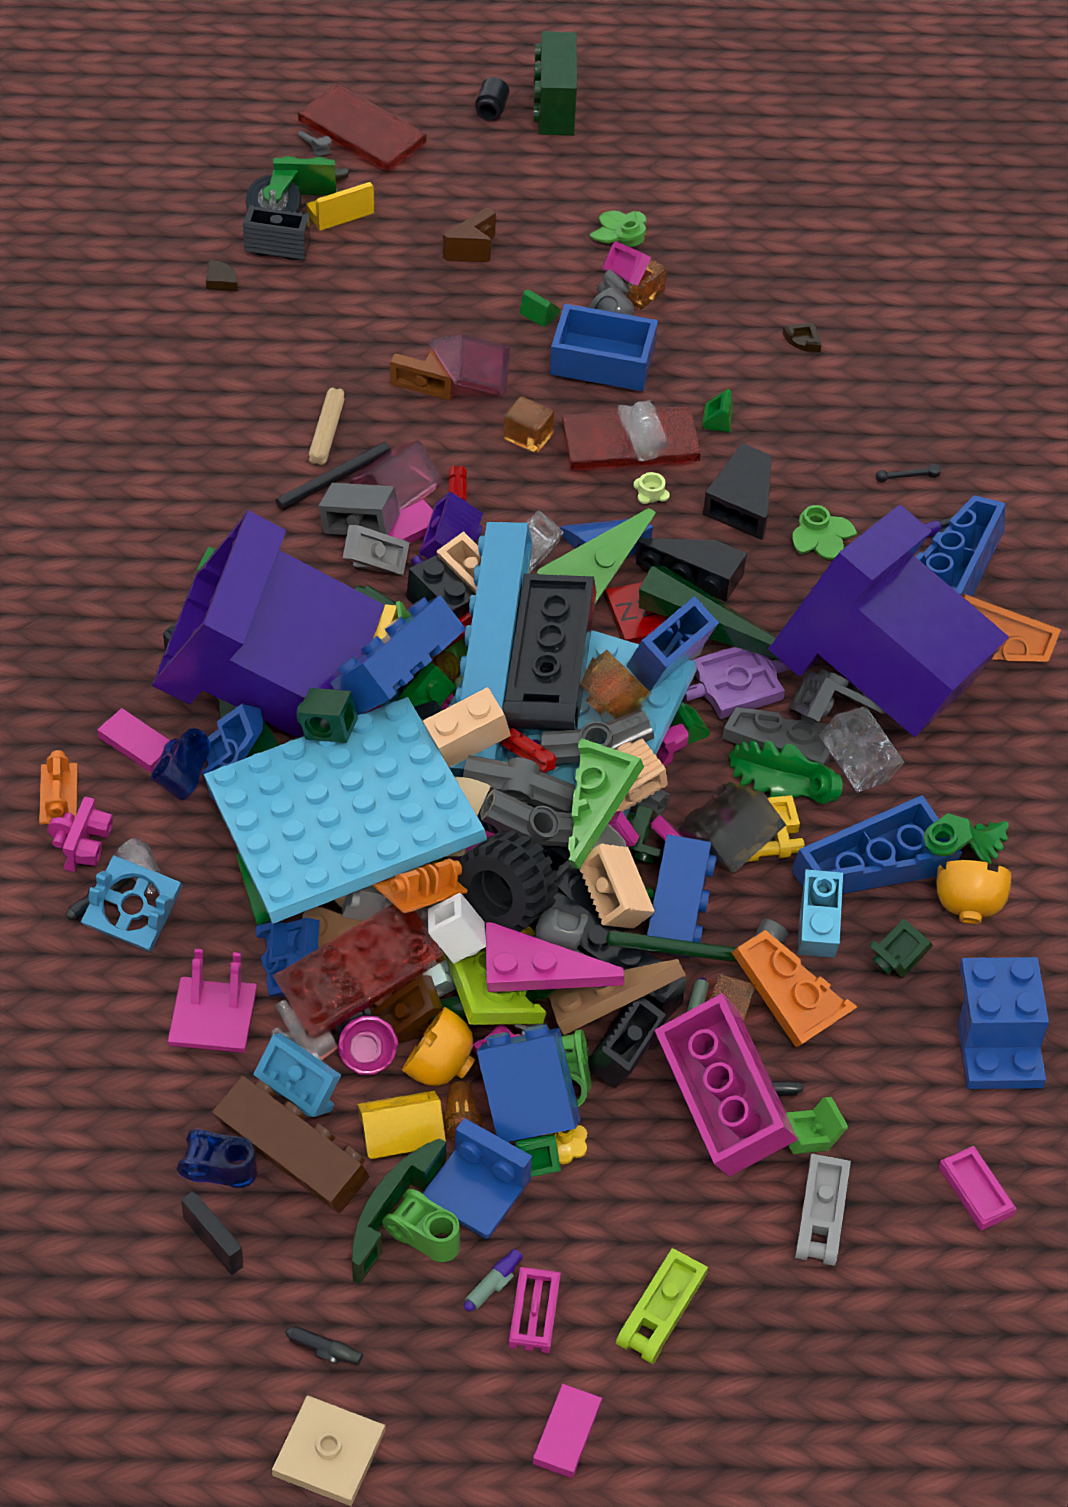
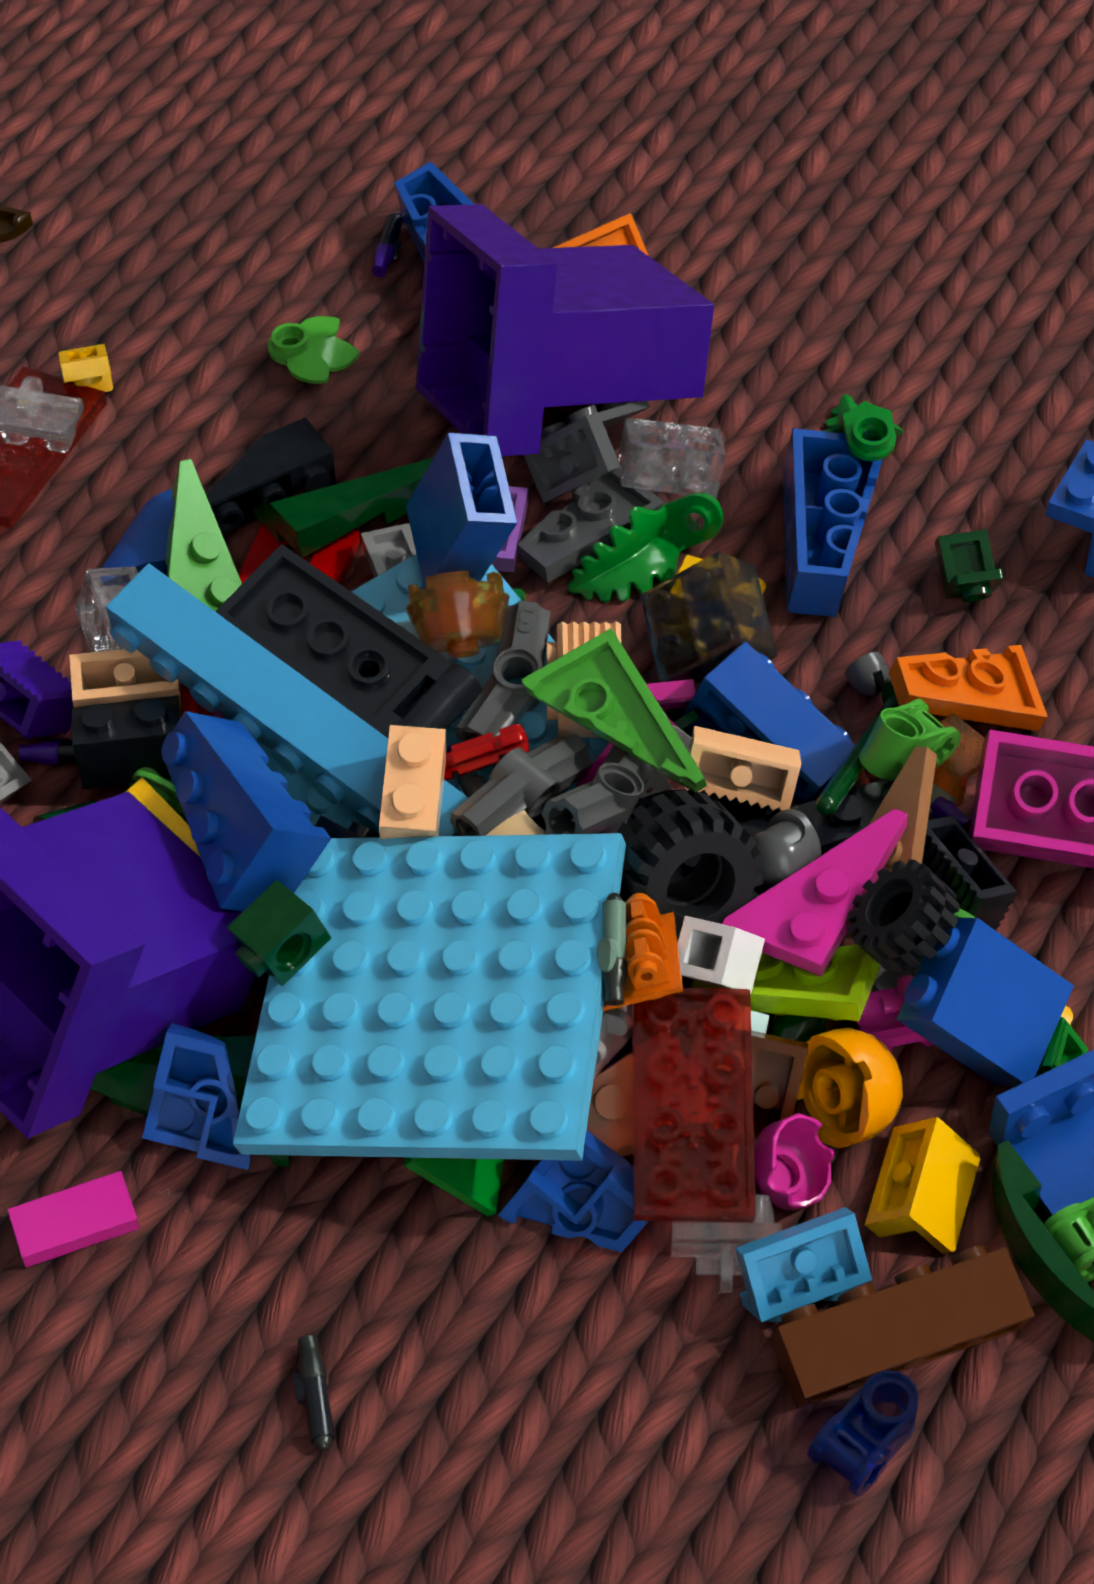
camera: 55 degrees left, 0 degrees up
(58, 787) = (93, 1360): orange hinge -> none
(75, 835) = (192, 1363): dark pink hips -> none
(120, 869) = (332, 1374): dark azure piece -> none
(140, 854) = (305, 1308): clear cone -> none
(182, 763) = (172, 1173): clear blue piece -> none
(212, 1232) = (988, 1493): black tile -> none
(213, 1012) = (613, 1329): dark pink plate -> none
(406, 864) = (612, 950): none -> sand green piece
(460, 1105) = (957, 1106): clear orange cone -> none
(540, 1003) = (903, 915): none -> black tyre
(651, 488) = (111, 466): yellowish green plate -> none
(701, 961) = (899, 732): none -> bright green piece
(708, 433) = (87, 367): none -> yellow bracket
(719, 412) = (43, 346): green slope -> none
(741, 492) = (199, 383): black slope -> none
(820, 914) = (887, 606): medium azure slope -> none
(933, 471) = (298, 215): black hinge -> none
(972, 890) = (935, 462): light orange cylinder -> none

